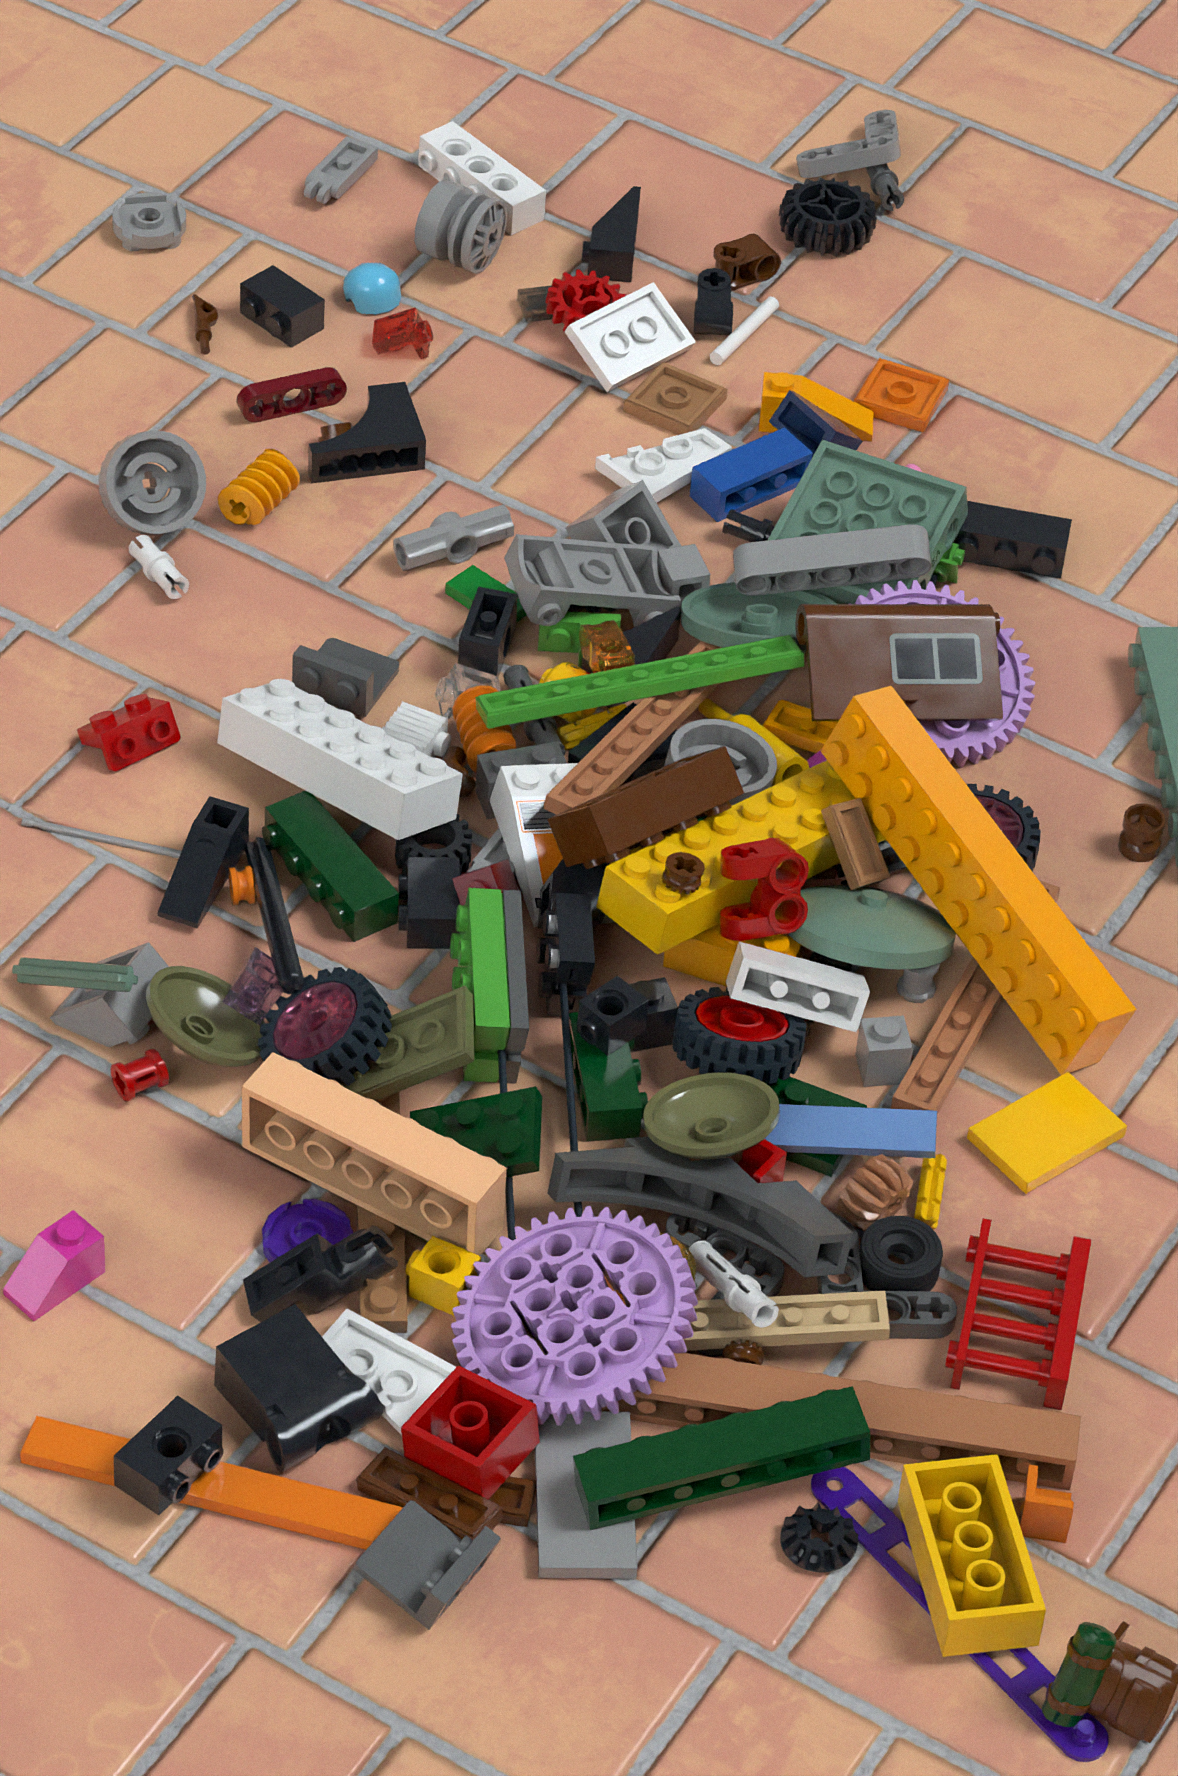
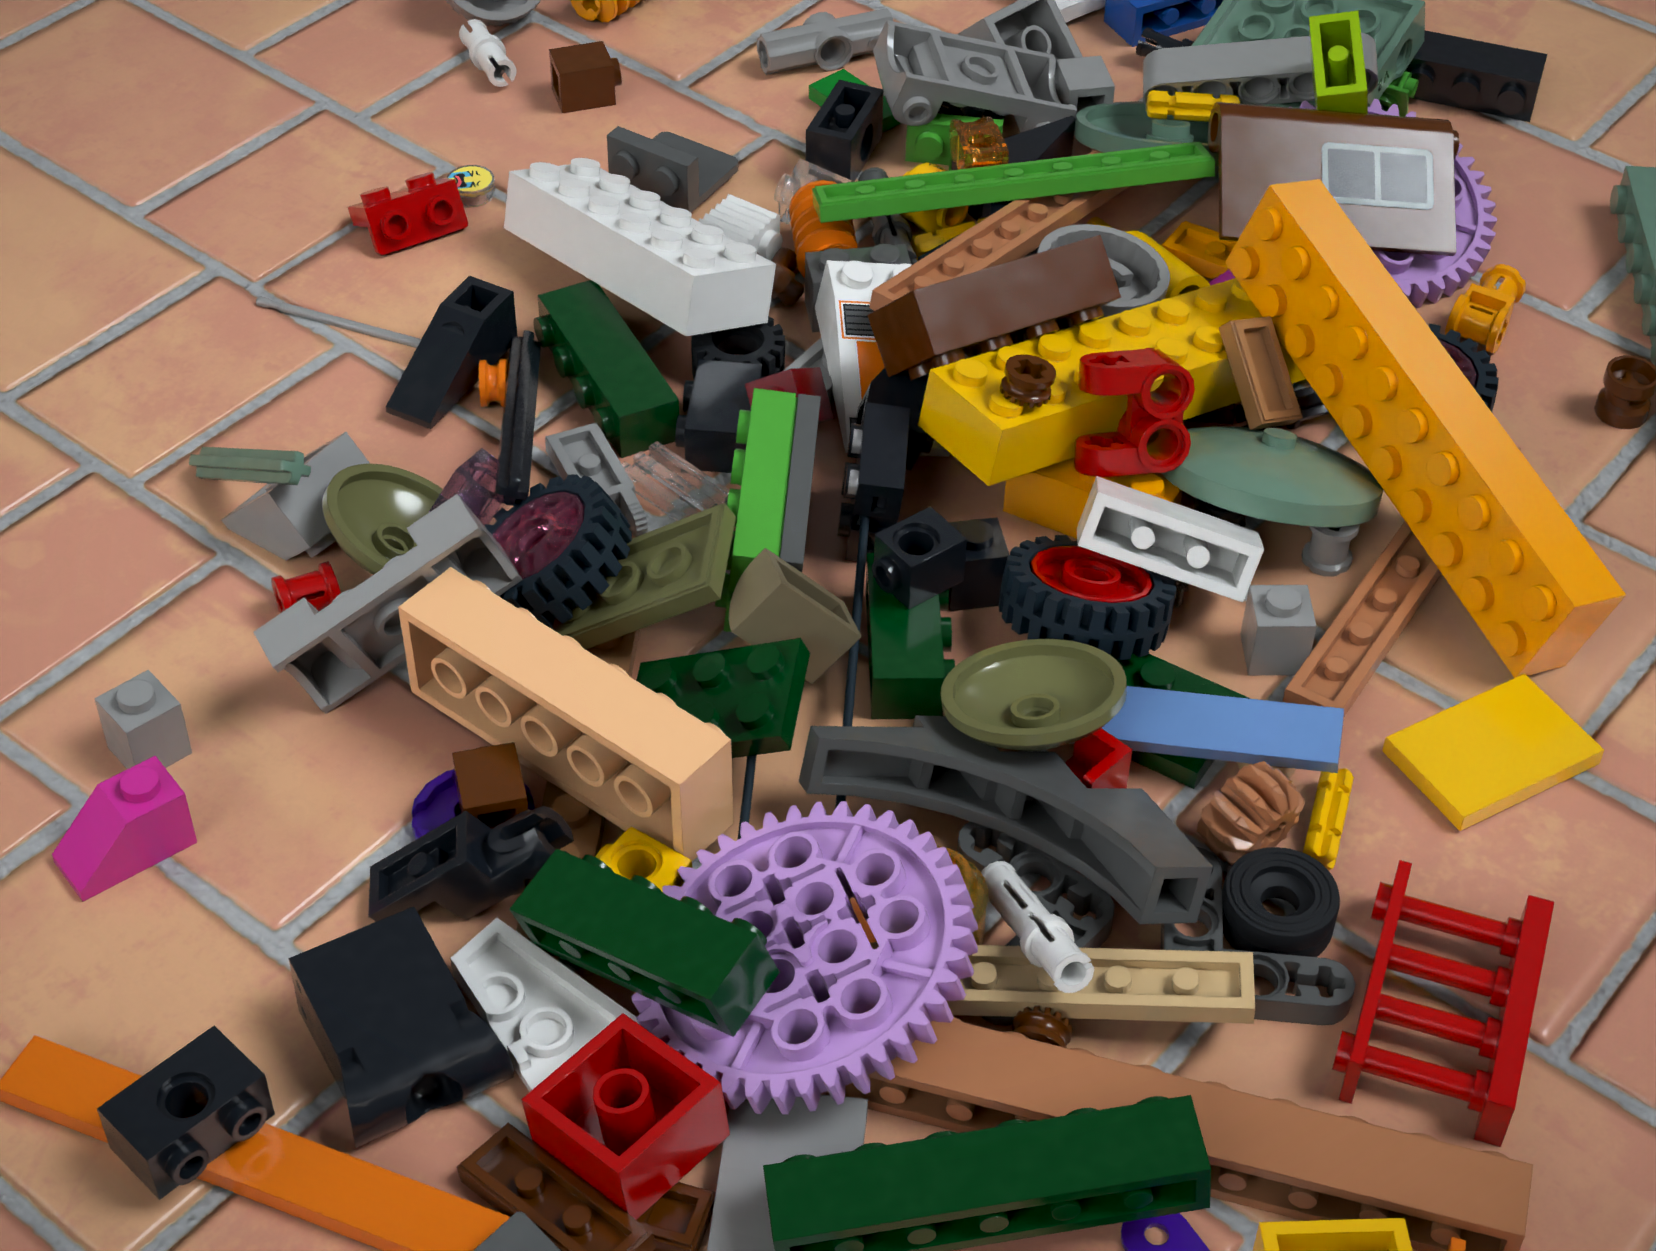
camera: 10 degrees right, 0 degrees up
(47, 1187) = (143, 722): none -> light grey brick
(180, 696) = (474, 184): none -> tile
(214, 1098) = (361, 632): none -> light grey piece
(249, 587) = (584, 76): none -> reddish brown brick
(324, 1211) = (490, 783): none -> reddish brown brick
(330, 946) = (589, 454): none -> light grey hinge
(408, 961) = (679, 477): none -> clear tile
(464, 1313) = (647, 940): none -> dark green brick
(518, 1061) = (784, 604): none -> dark tan brick
(778, 592) = (1184, 105): none -> yellow axle
(898, 562) = (1338, 62): none -> lime brick
(1029, 766) = (1485, 310): none -> light orange connector

